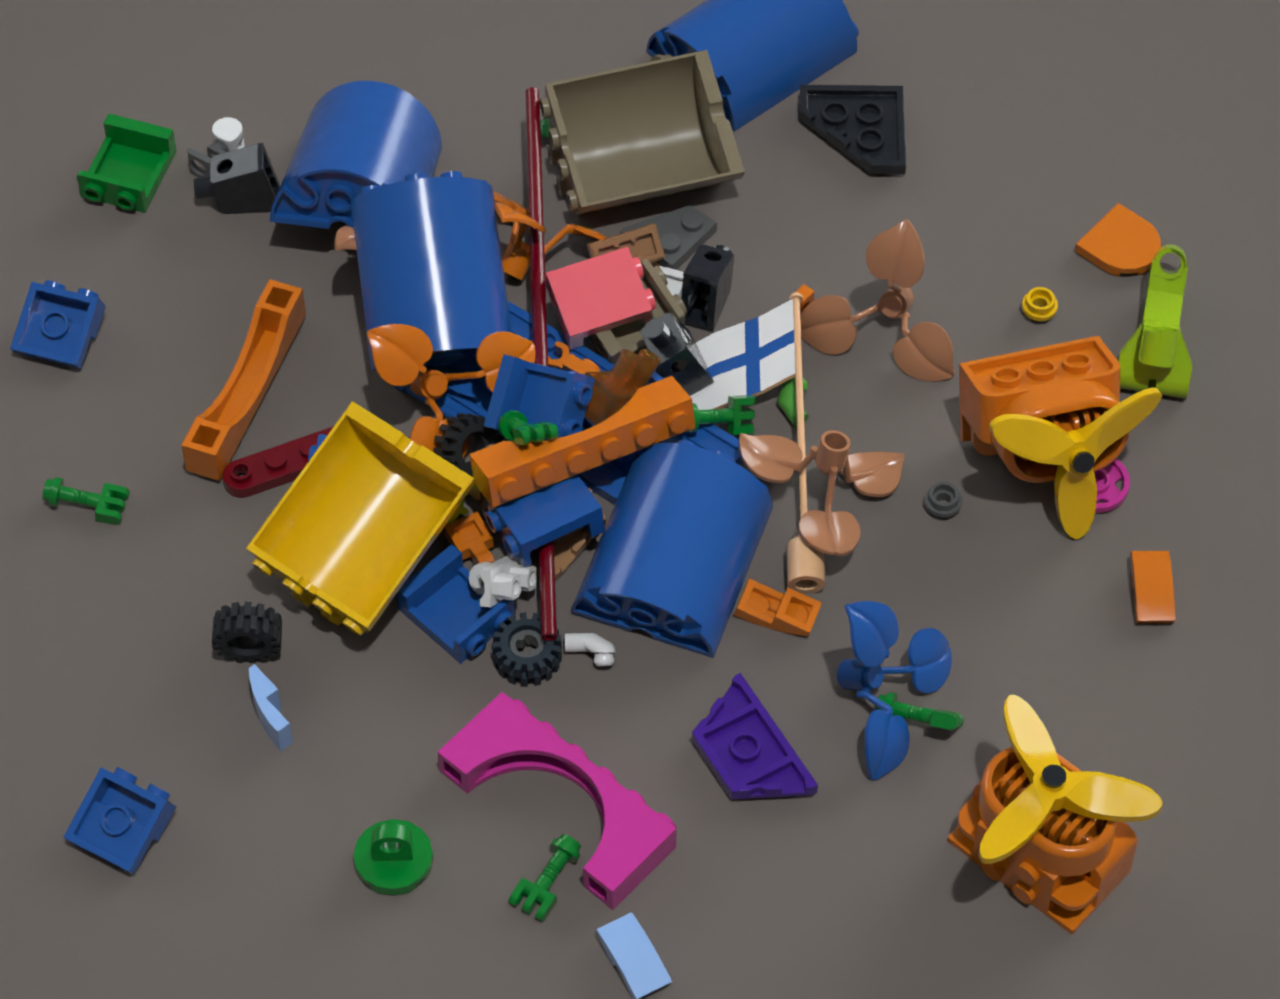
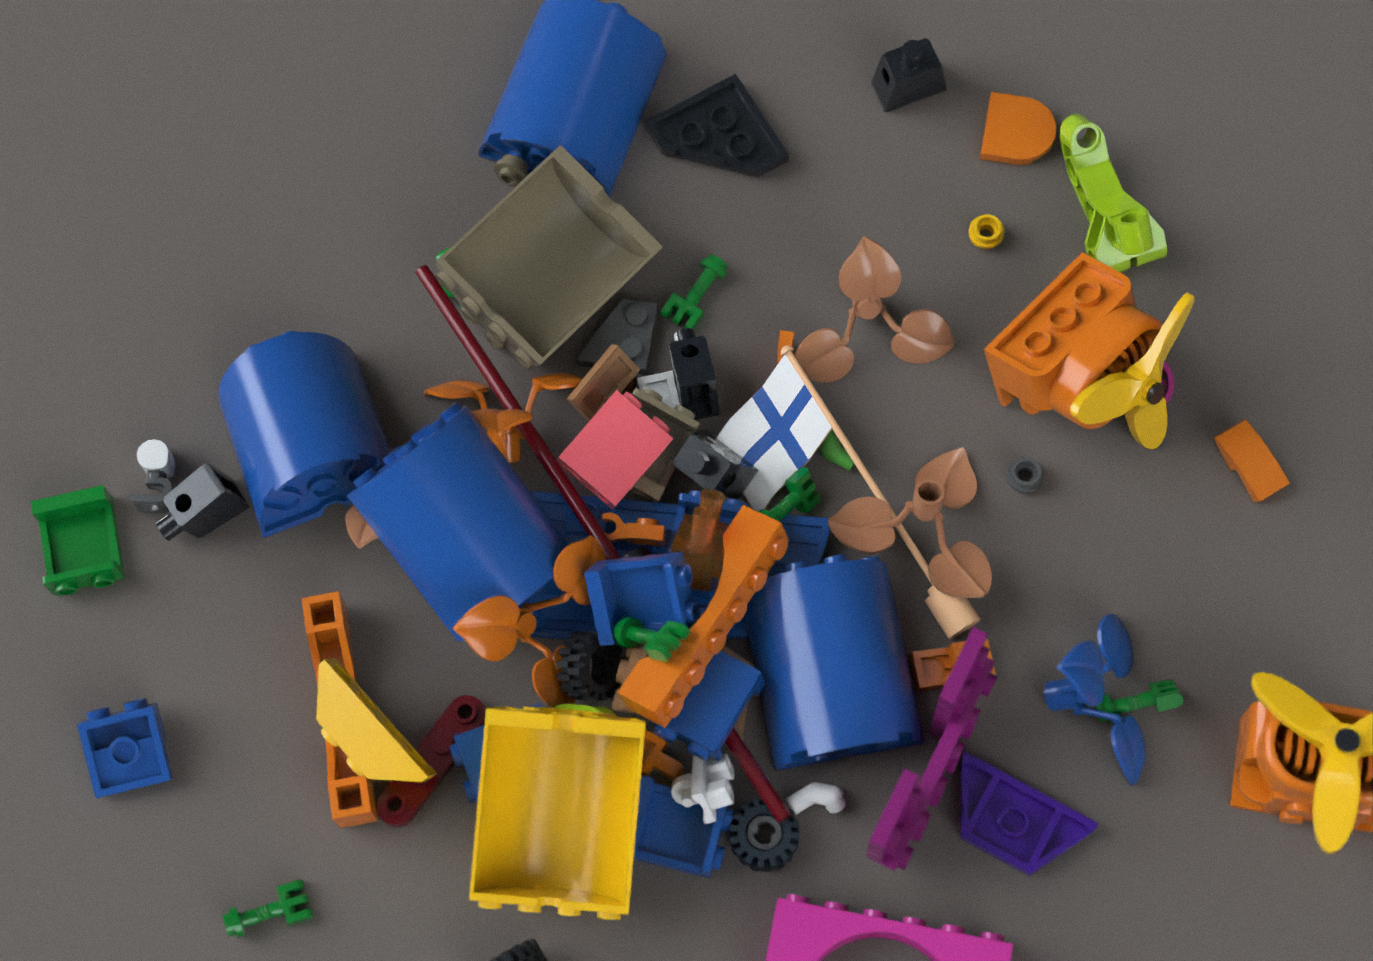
camera: 25 degrees left, 15 degrees up
(249, 387) = (363, 730): none -> yellow wedge
(739, 240) = (713, 268): none -> green hinge
(759, 613) = (955, 717): none -> magenta plate
(1053, 152) = (908, 75): none -> black torso

